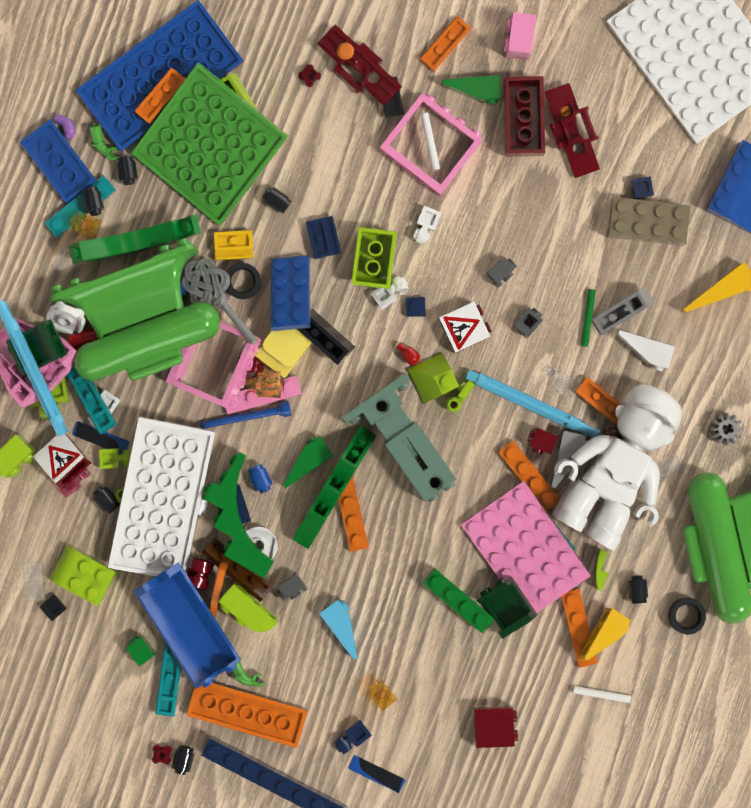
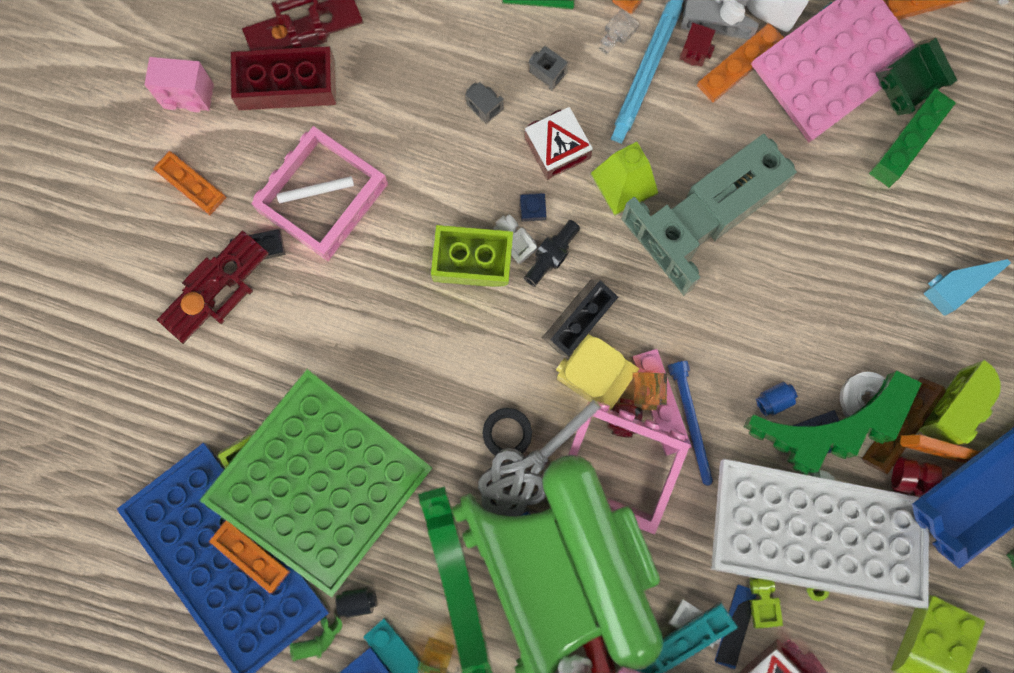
camera: 90 degrees left, 10 degrees down
(92, 201) = (400, 651): black brick -> none
(105, 499) = (826, 615): black brick -> none
(233, 245) = (458, 447): yellow plate -> none
(276, 200) = (395, 391): black brick -> none
(290, 293) = (524, 363): blue plate -> none
(291, 587) = (919, 351): dark grey brick -> none
(304, 75) = (222, 349): dark red plate -> none
(311, 457) = (744, 333): green slope -> none
(323, 237) = (445, 327): dark blue plate -> none
(334, 487) = (789, 293): green arch -> none
(352, 518) = (808, 279): orange plate -> none
(377, 319) = (552, 253): none -> black pin
(408, 354) = (595, 212): red cylinder -> none
(428, 220) = (419, 193): white plate -> none
(464, 390) = (646, 143): lime plate -> none
(481, 88) = (247, 138): green slope -> none

